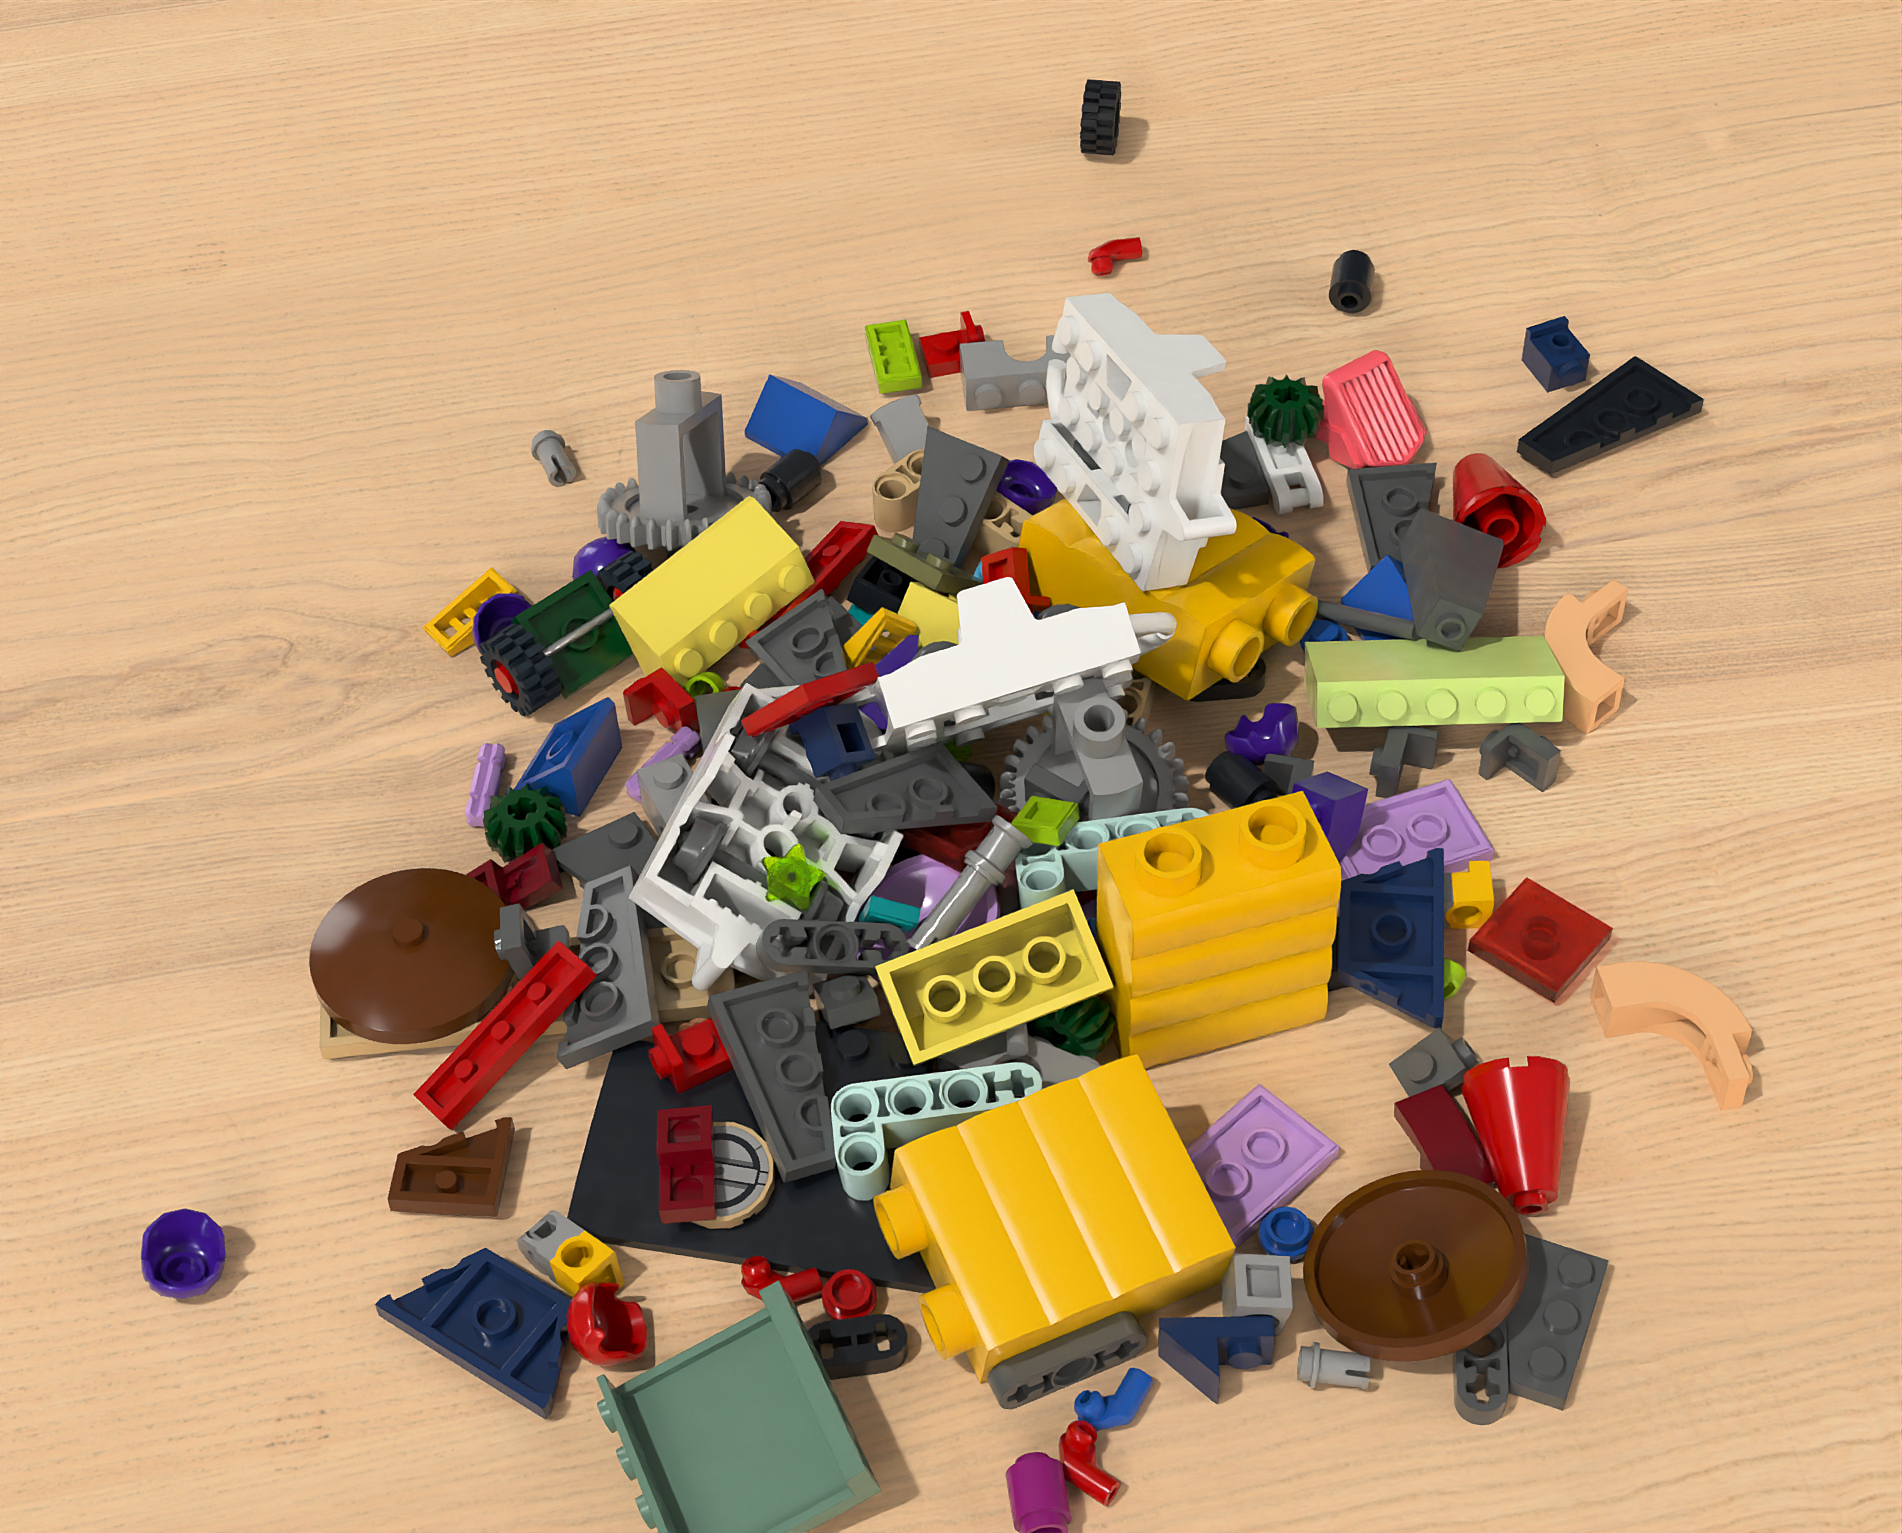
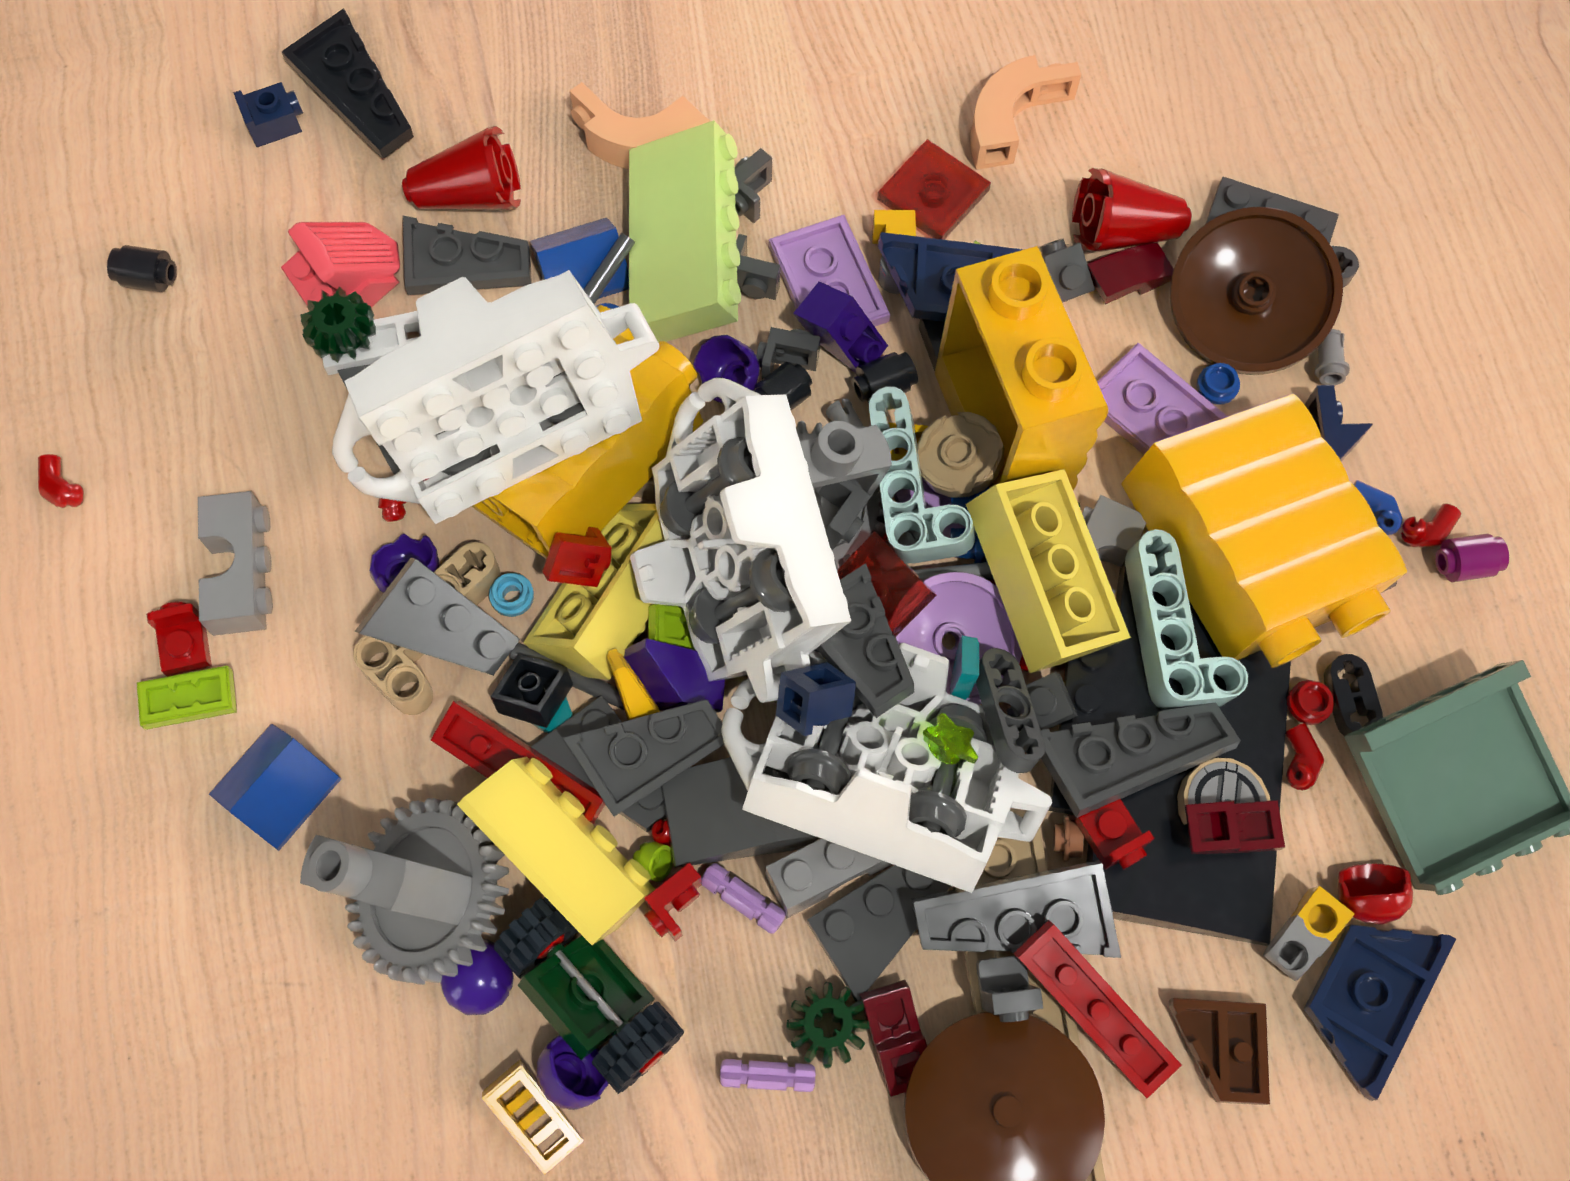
camera: 95 degrees left, 20 degrees up
(549, 450) = (299, 1054): light grey pin -> none
(576, 756) = (741, 992): blue slope -> none
(791, 478) = (366, 793): black brick -> none
(810, 697) = (802, 703): red tile -> none
(901, 426) = (299, 683): light grey tile -> none
(926, 568) = (527, 646): olive wing -> none
(983, 869) = (943, 572): light grey pin -> none
(1047, 820) = (886, 521): lime tile -> none
(1258, 1288) = (1302, 381): light grey brick -> none
(1447, 576) = (576, 204): dark grey slope -> none

